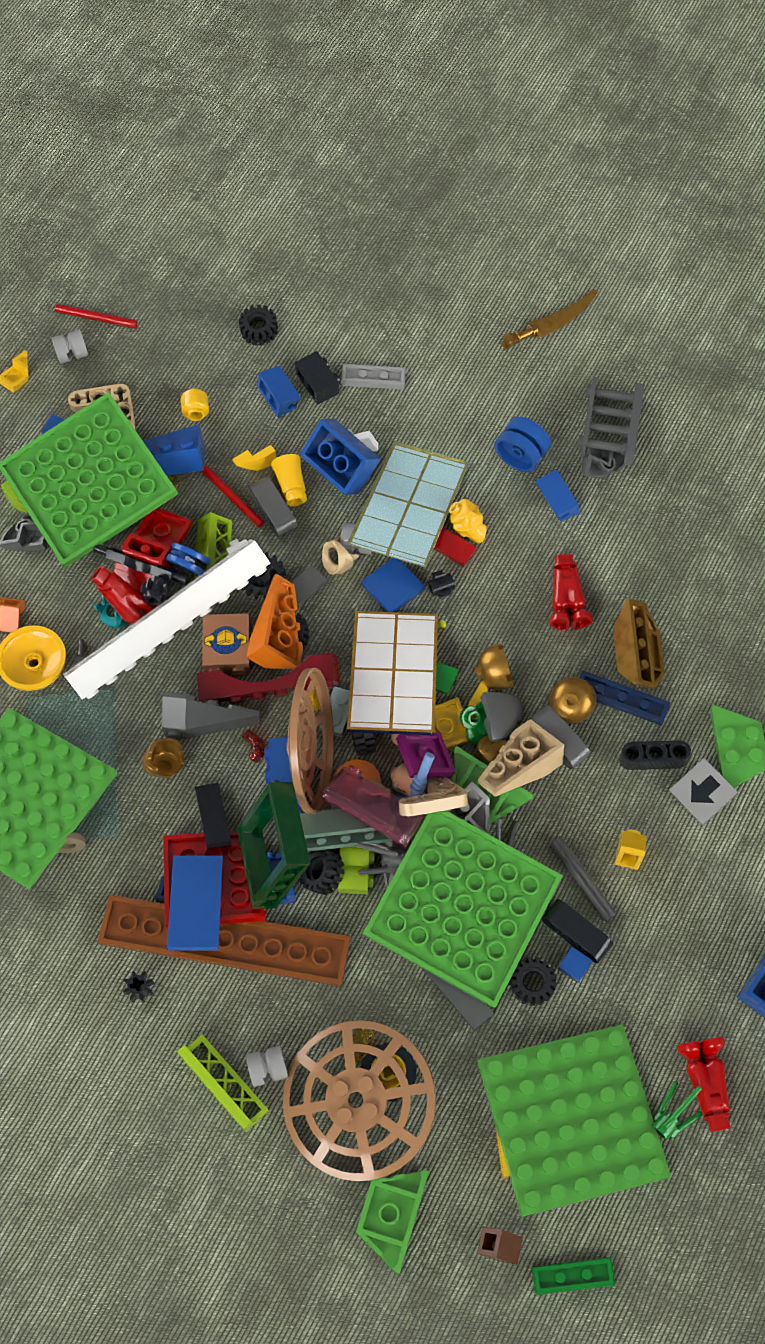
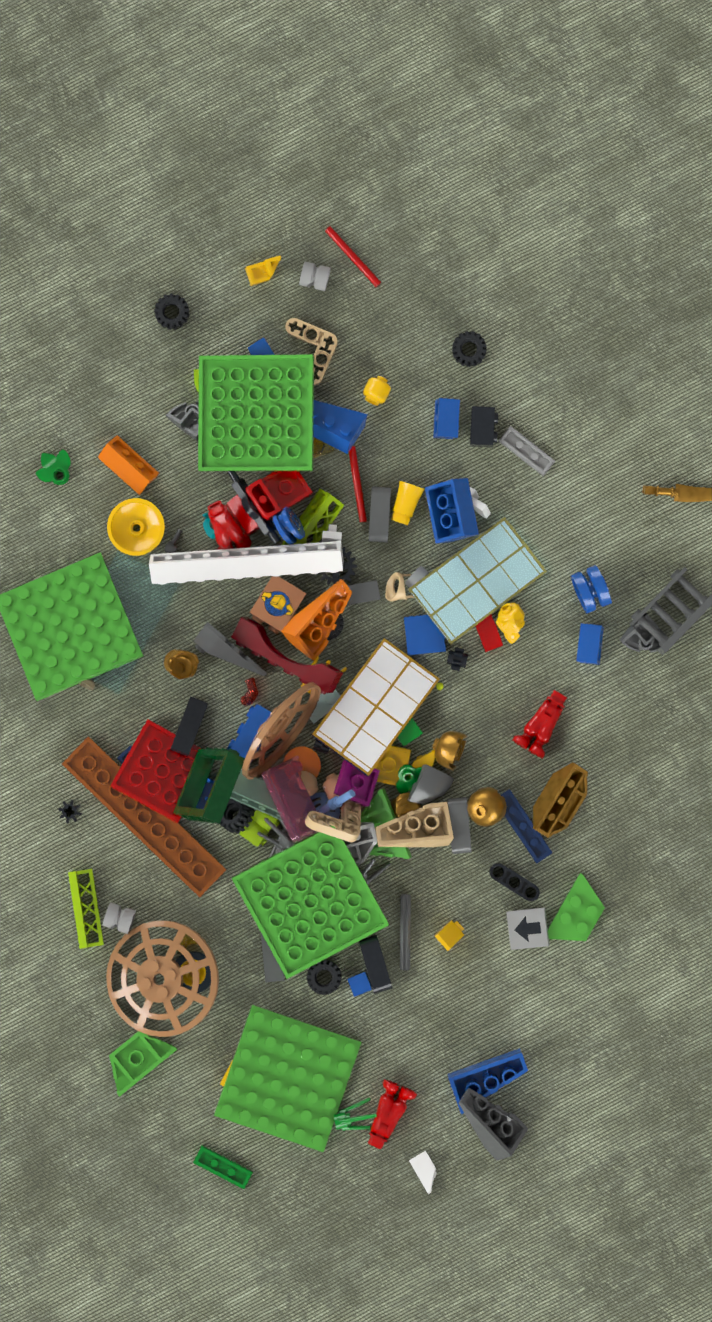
camera: 35 degrees right, 20 degrees up
(155, 590) = (249, 538): black gear -> none
(195, 903) = (138, 784): blue tile -> none
(256, 462) = (383, 465): yellow slope -> none
(499, 1245) = (189, 1121): reddish brown brick -> none

